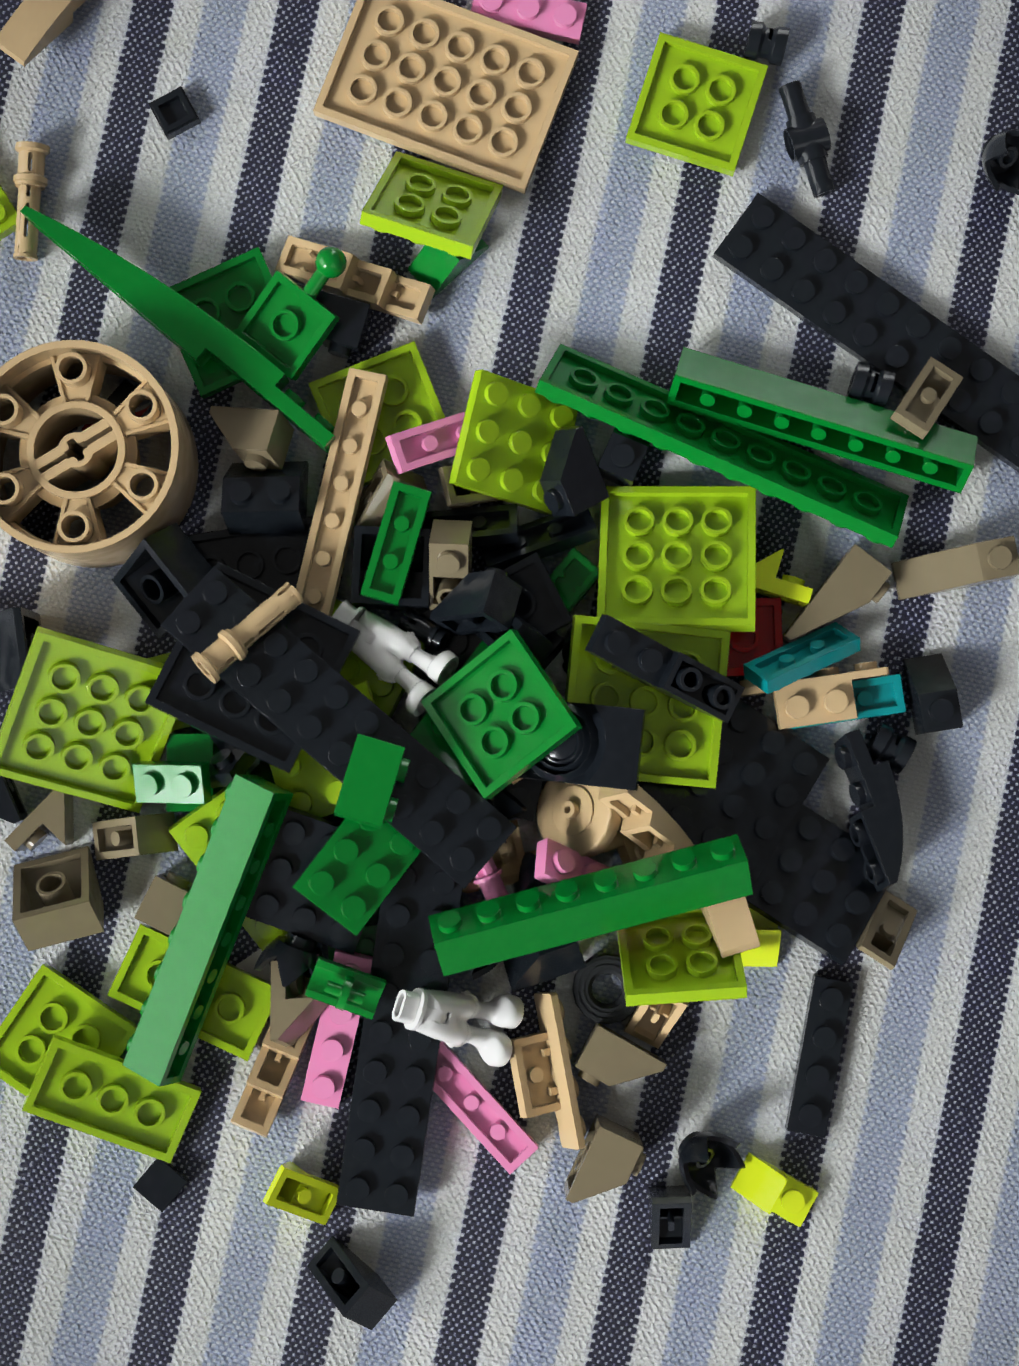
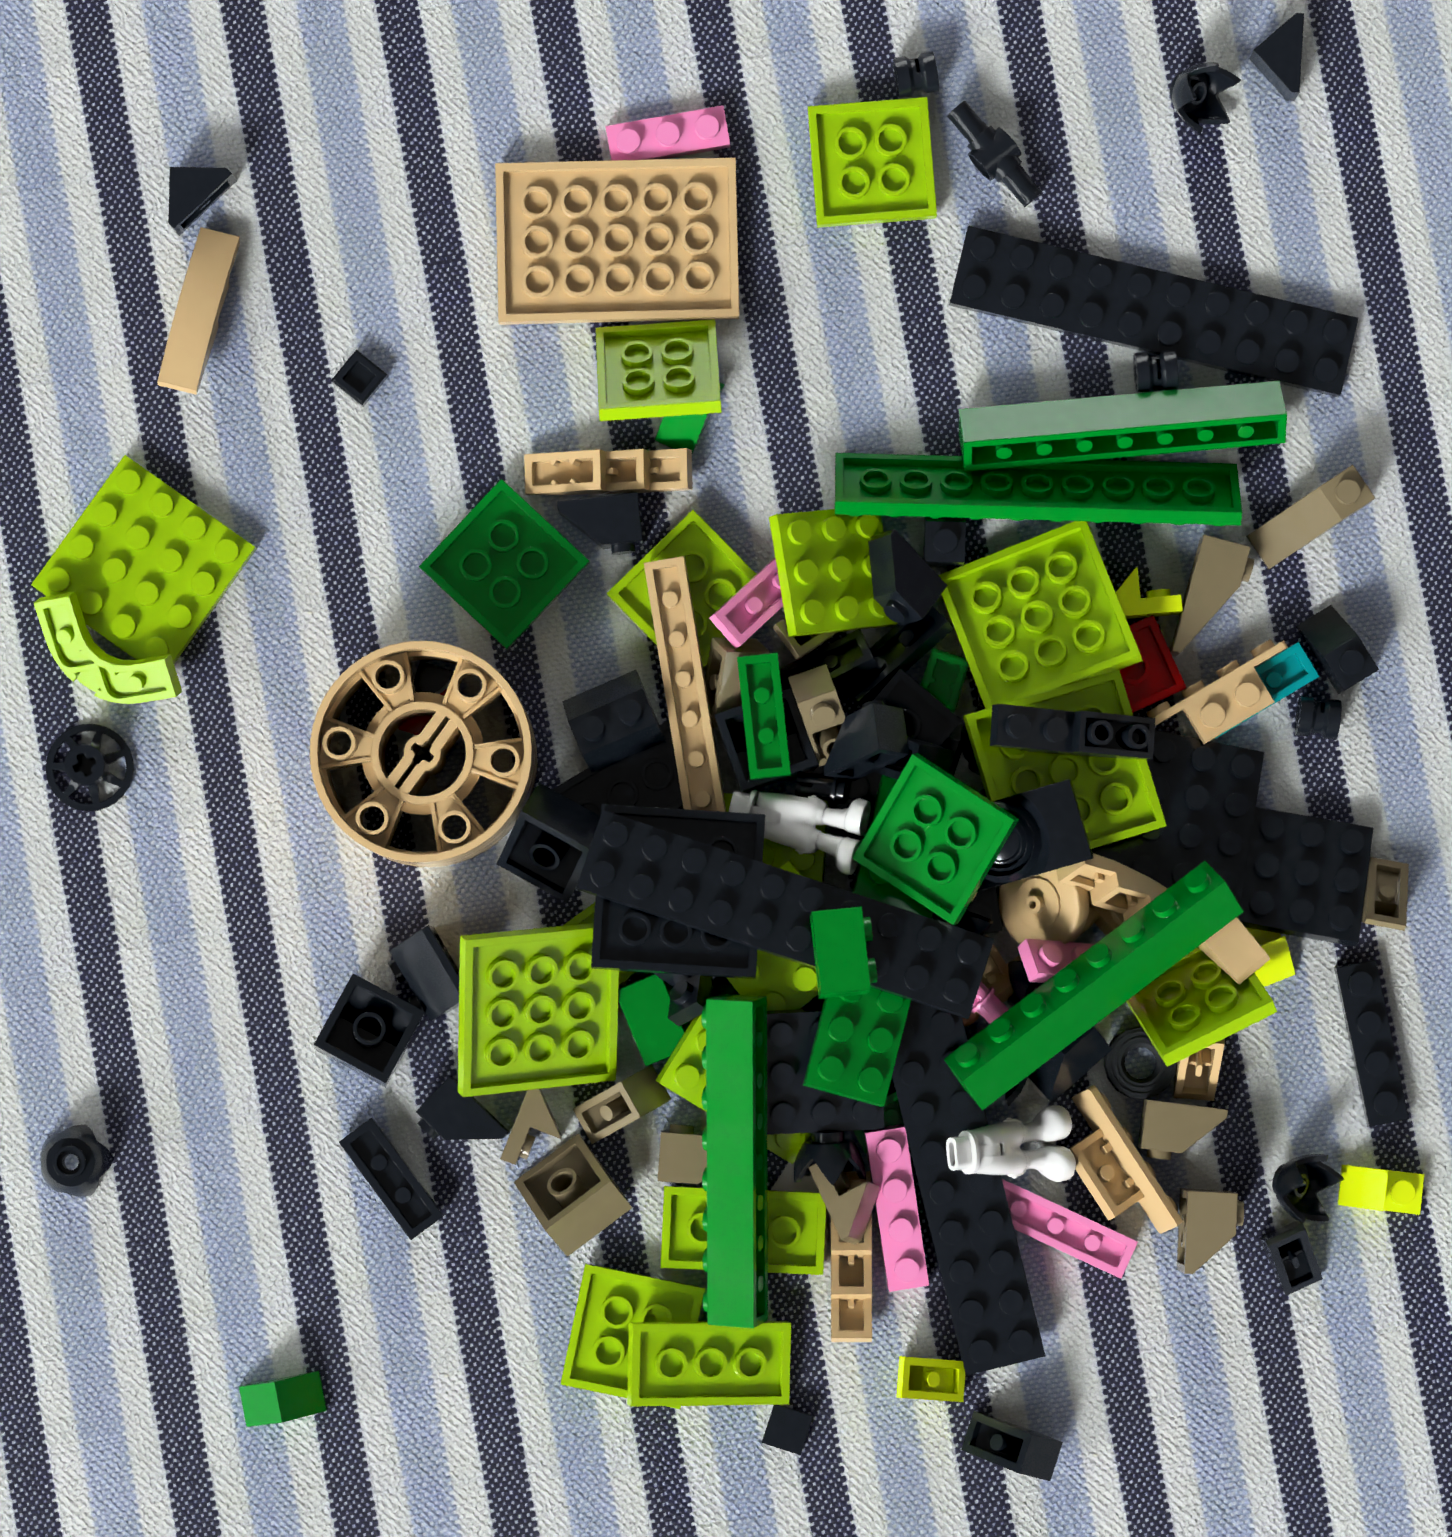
camera: 25 degrees left, 0 degrees up
(35, 182) = (271, 571): tan pin -> none
(172, 782) = (642, 1034): plate -> none
(185, 325) = (467, 586): green slope -> none
(233, 643) = (657, 875): tan pin -> none
(255, 435) = (579, 665): dark tan slope -> none
(288, 320) = (564, 541): green plate -> none
(345, 987) = (892, 1160): green hips -> none
(801, 657) = (1197, 665): teal plate -> none
(879, 823) = (1336, 795): black slope -> none
(926, 398) = (1214, 365): dark tan slope -> none

